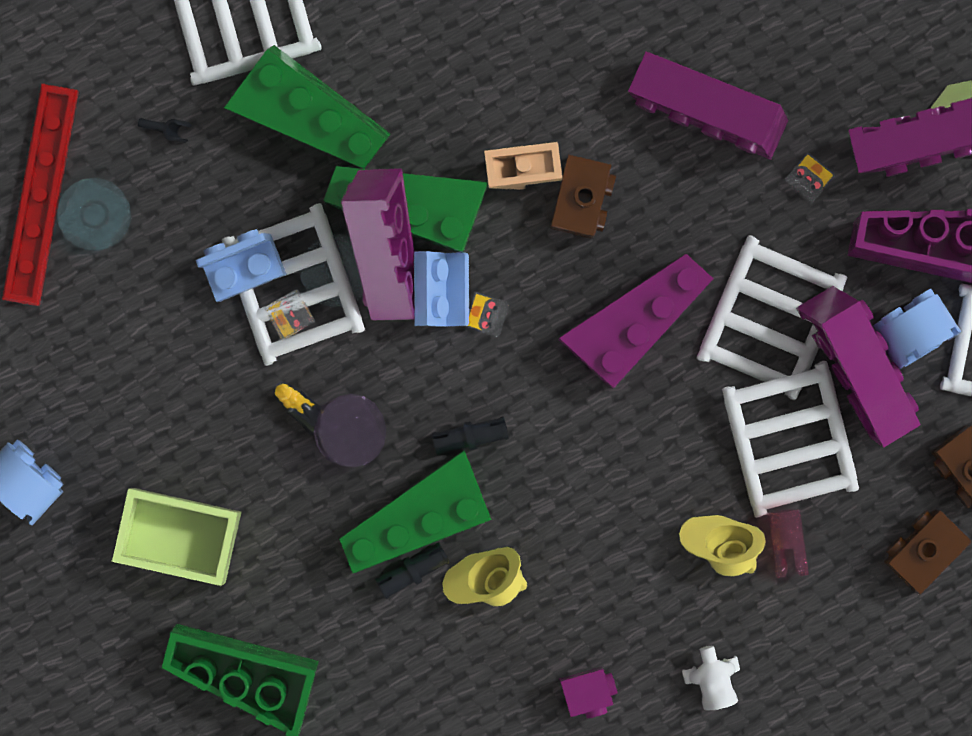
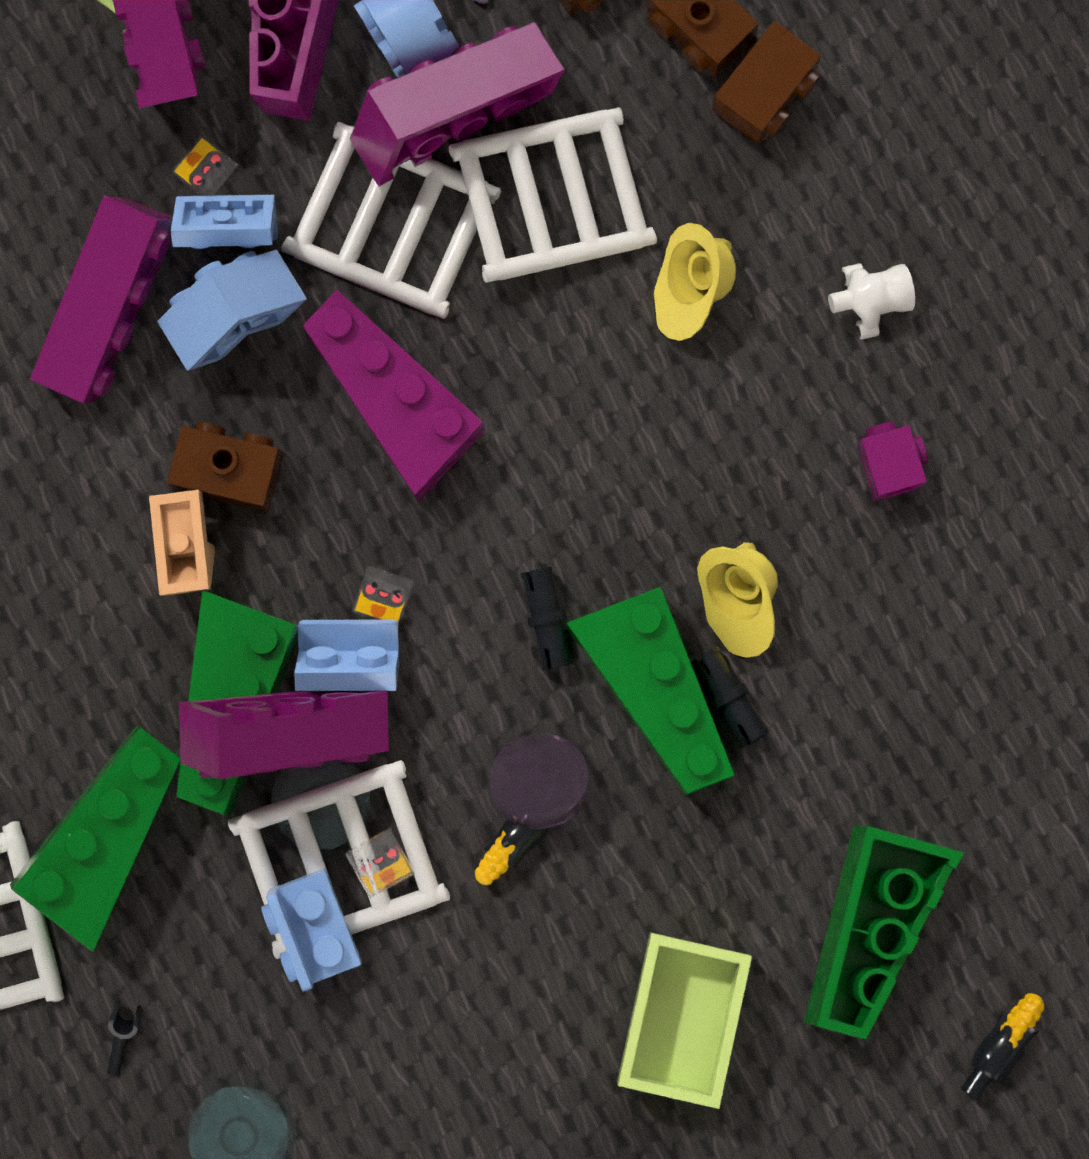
camera: 75 degrees left, 5 degrees down
(702, 198) = (229, 305): none -> light blue brick
(766, 193) = (224, 221): none -> light blue bracket
(787, 533) = (679, 199): clear pink hinge -> none
(875, 600) = (767, 83): none -> reddish brown brick

